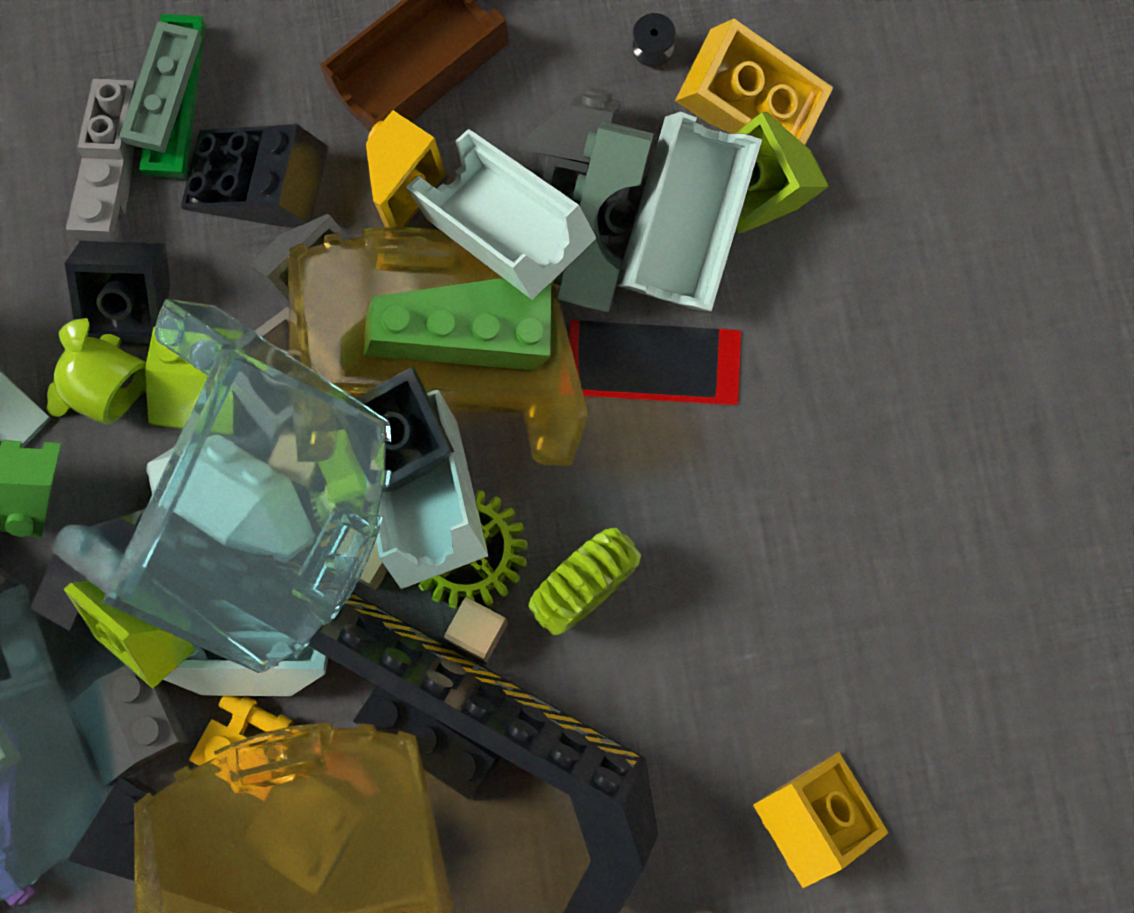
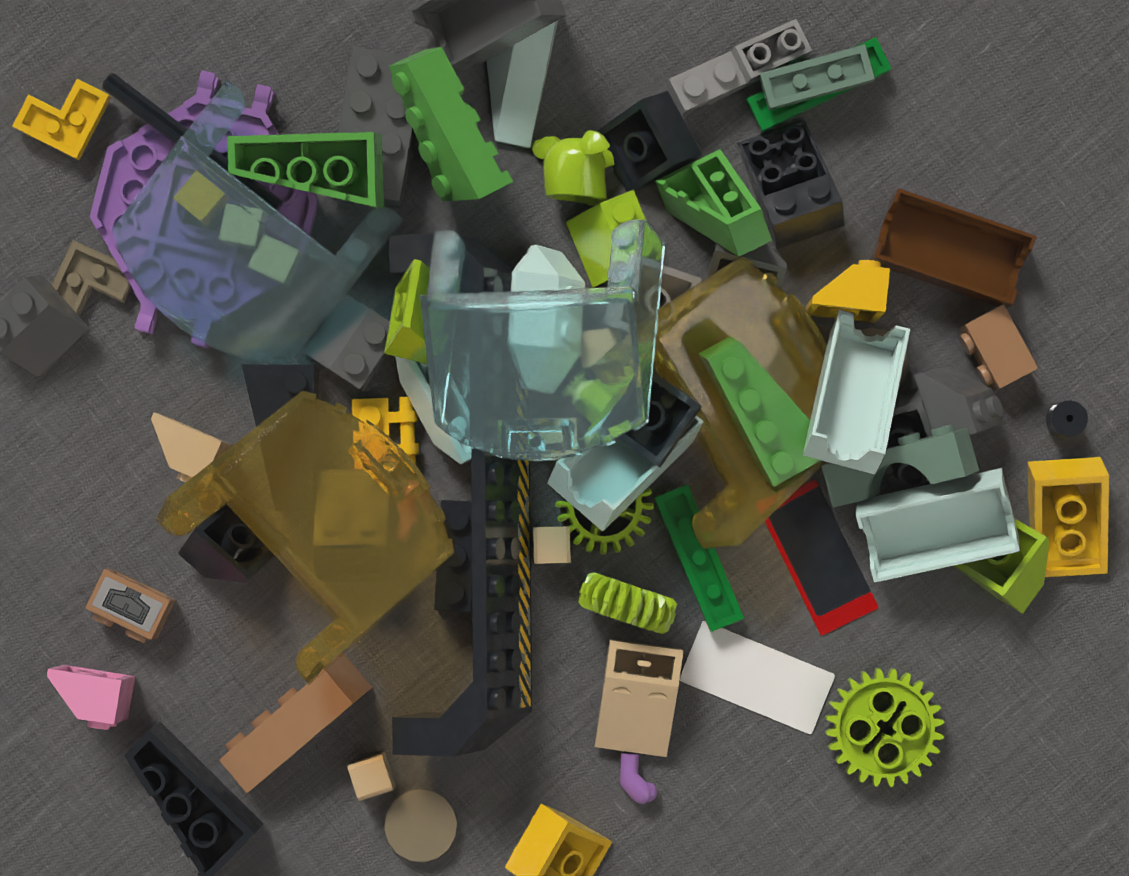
camera: 55 degrees right, 10 degrees up
(223, 248) = (715, 203): none -> bright green wedge
(542, 66) = (997, 348): none -> medium nougat brick
(583, 484) = (699, 563): none -> green plate
(695, 629) = (638, 697): none -> tan slope
(744, 496) = (757, 677): none -> white sticker
(784, 691) = (632, 782): none -> medium lavender arm
(907, 378) = (910, 748): none -> lime gear

